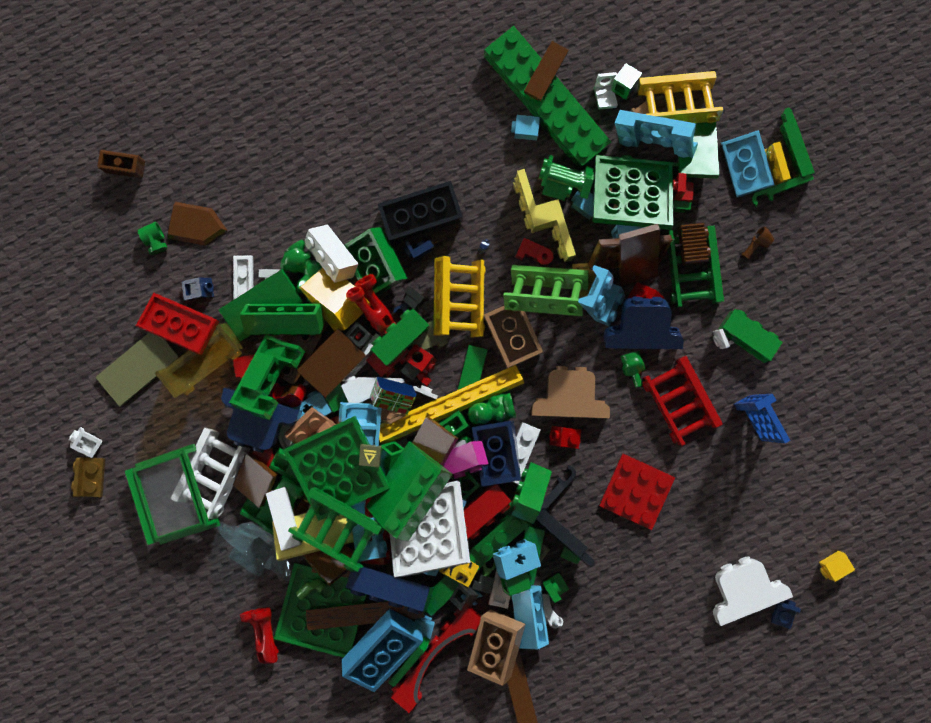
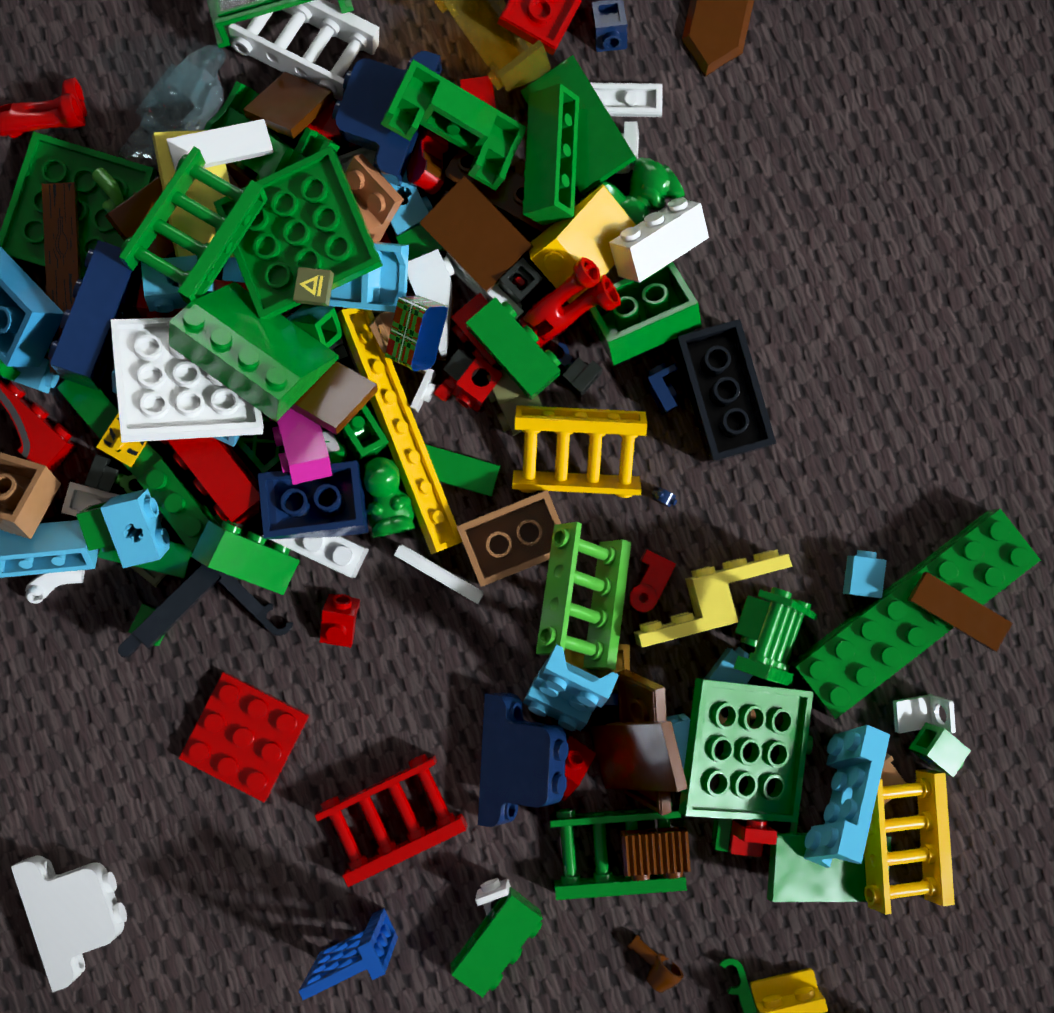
camera: 90 degrees right, 0 degrees up
(464, 597) = (81, 441): pearl dark grey piece -> none
(535, 377) = (439, 573): none -> white tile
(555, 587) = (92, 592): green bracket -> none
(570, 395) = (407, 632): medium nougat brick -> none
(633, 366) = (452, 739): green piece -> none
(747, 164) = (791, 953): medium azure tile -> none
(785, 613) = (27, 977): dark blue bracket -> none

